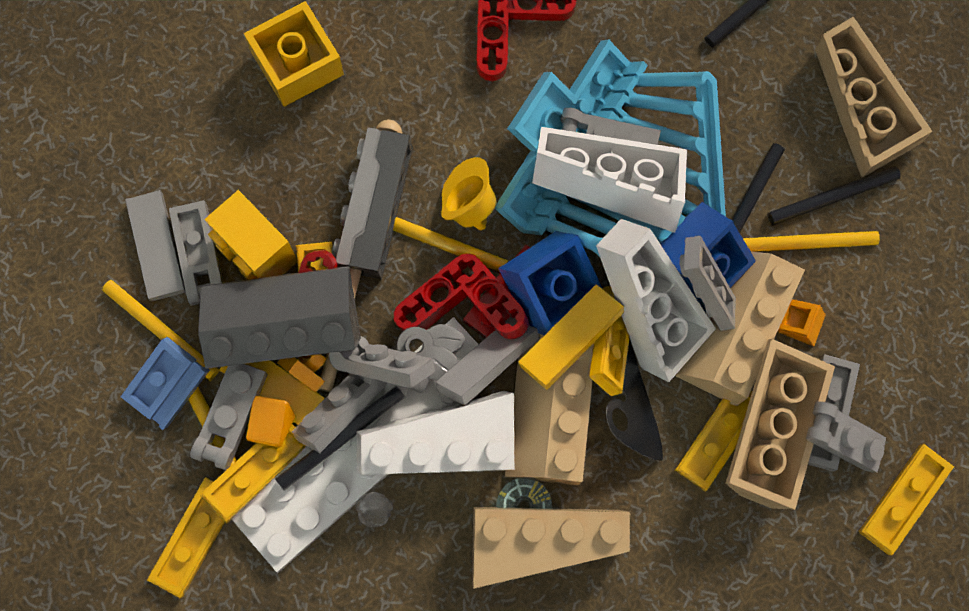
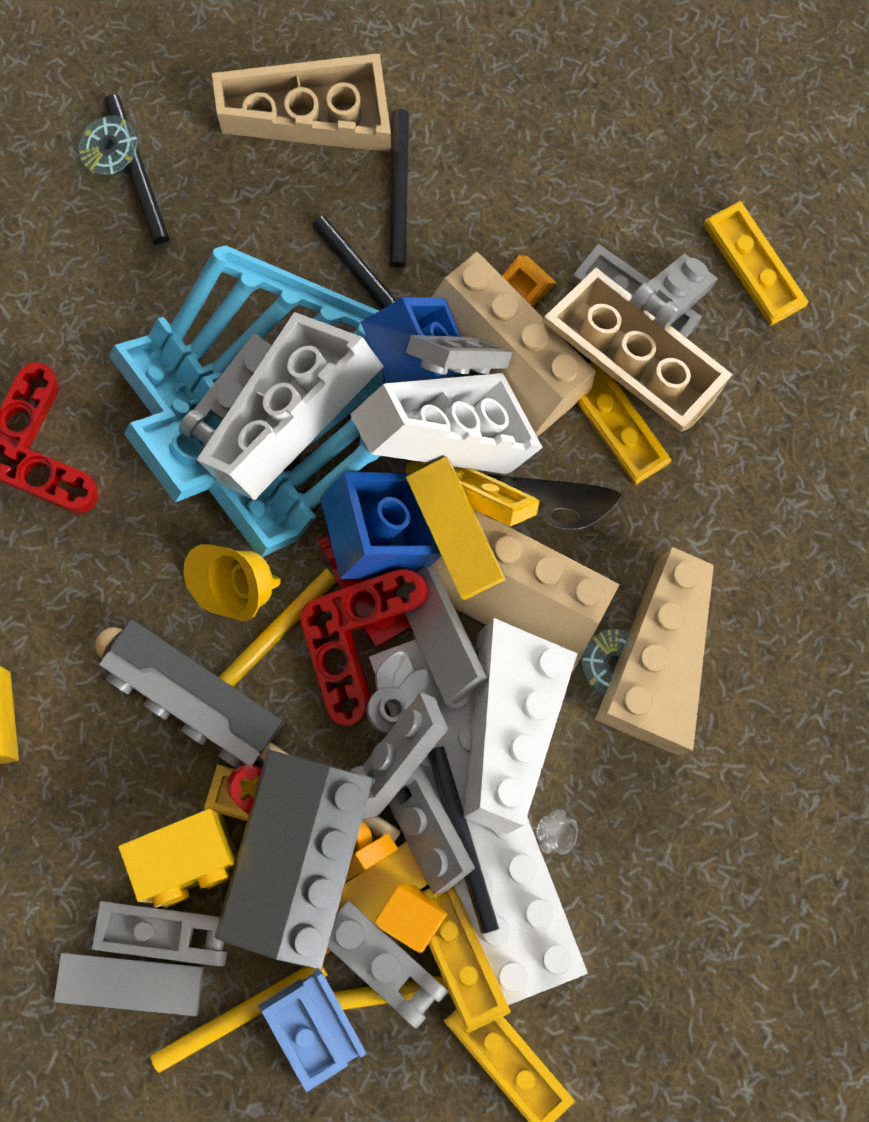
camera: 65 degrees left, 0 degrees up
(812, 241) = (442, 230): yellow bar -> none

